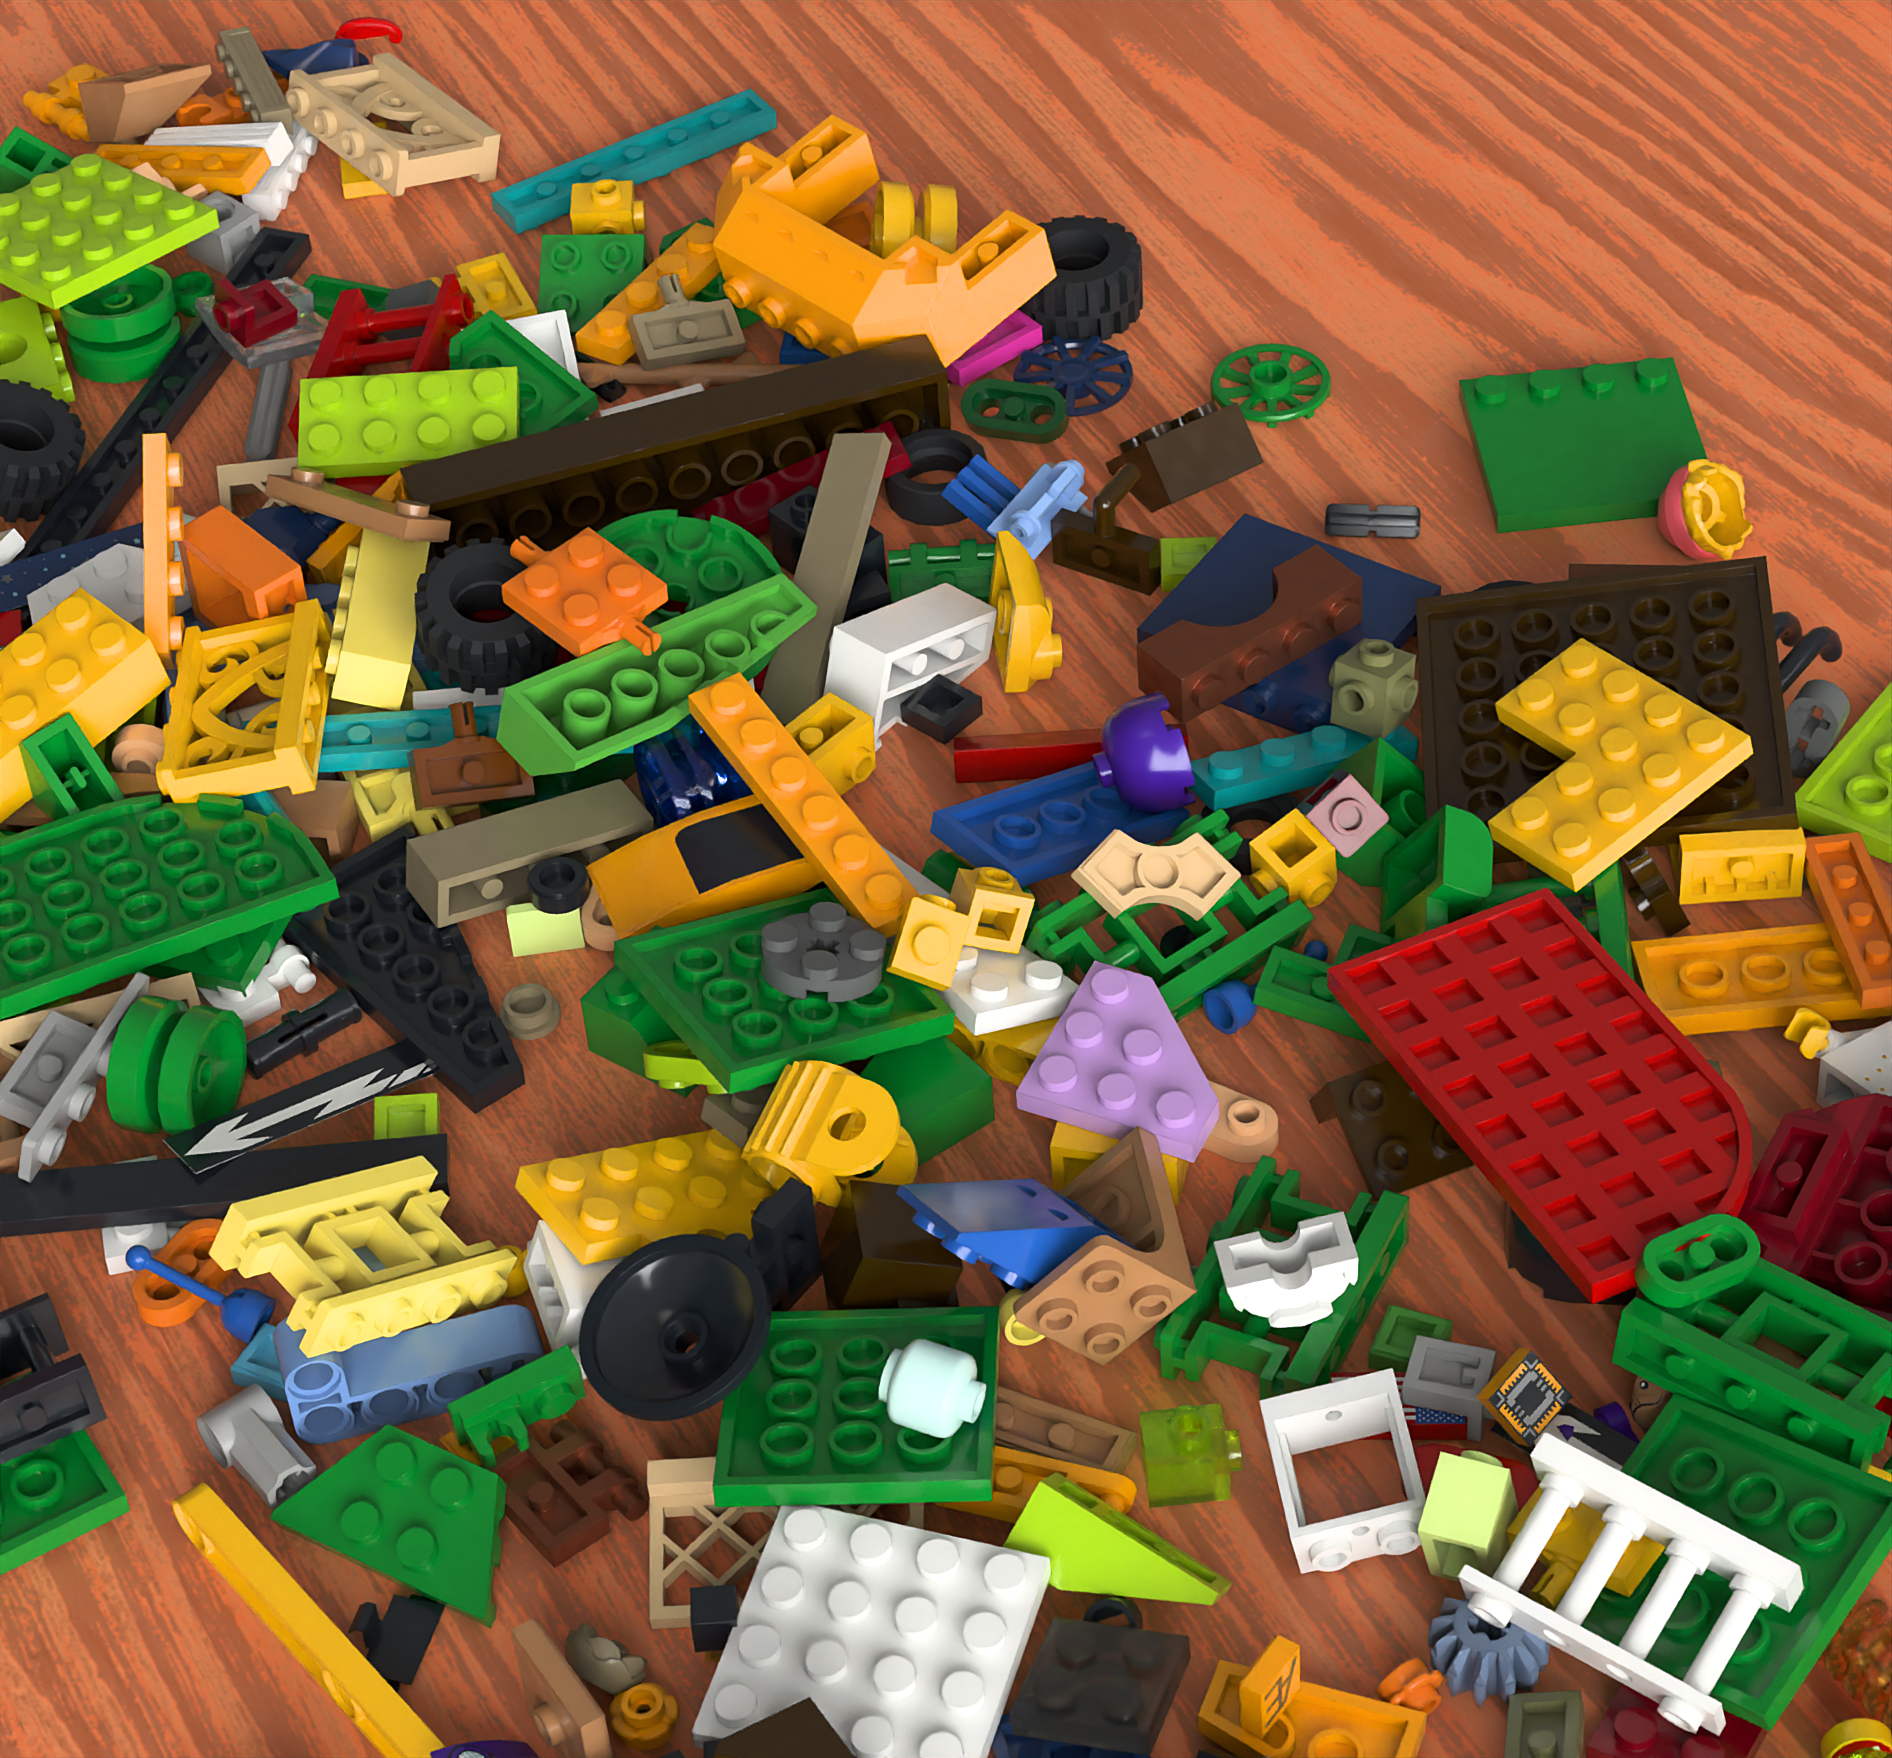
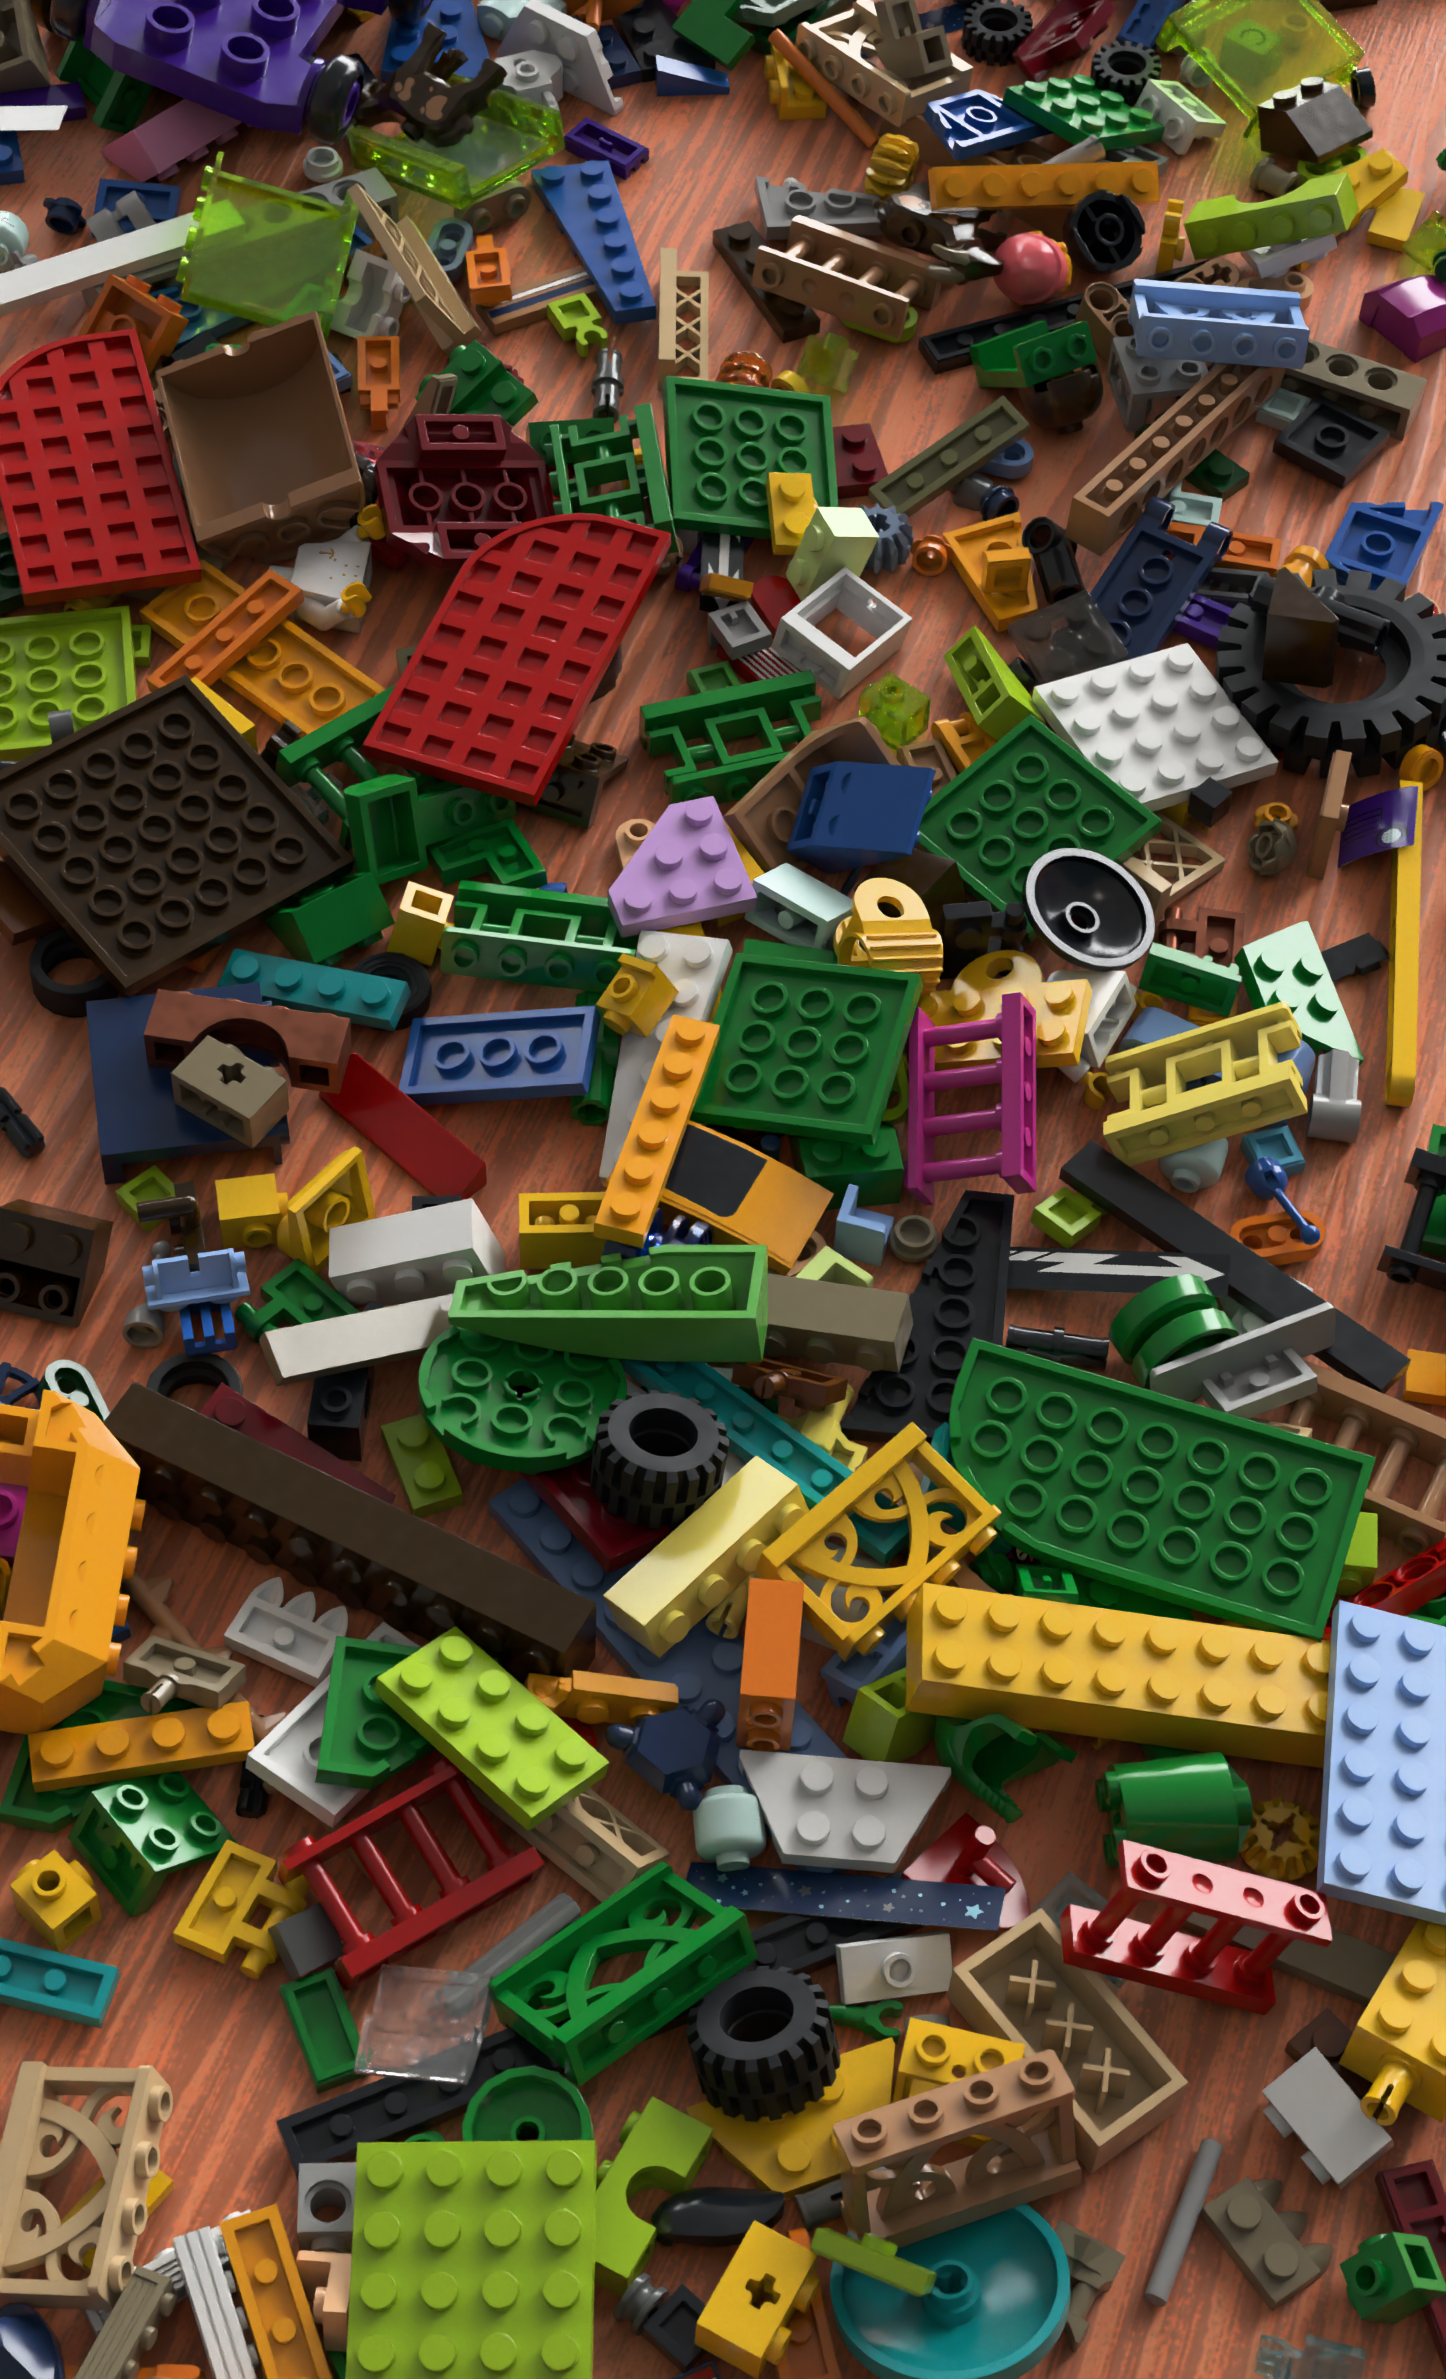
camera: 140 degrees left, 10 degrees up
(139, 346) = (619, 2016): none -> green fence
(161, 527) = (829, 1675): light orange plate -> none
(252, 312) = (455, 1989): dark red bracket -> none
(401, 520) = (625, 1656): medium nougat plate -> none
(558, 885) = (827, 1257): black tile -> none
(558, 1104) = (1012, 1117): none -> dark pink fence
(572, 963) = (861, 1232): none -> light blue panel
(585, 593) = (616, 1356): orange plate -> none
(822, 954) = (766, 1006): dark grey plate -> none
(928, 941) = (698, 977): yellow bracket -> none
(931, 1388) = (1011, 761): light aqua head -> none
(985, 1147) = (798, 907): none -> light aqua brick
(1092, 596) = (250, 1210): none -> yellow brick
(1133, 873) = (533, 925): tan tile -> none
(1144, 757) = (414, 1025): dark purple cylinder -> none
(1204, 587) = (230, 1091): none -> dark tan brick
(1291, 1278) = (752, 701): white cylinder -> none
(1343, 812) = (377, 894): bracket -> none
(1373, 688) = (237, 953): olive brick -> none
(1629, 764) = (205, 760): yellow plate -> none
(1692, 1547) = (791, 464): white fence -> none
(1695, 1272) = (608, 510): green plate -> none

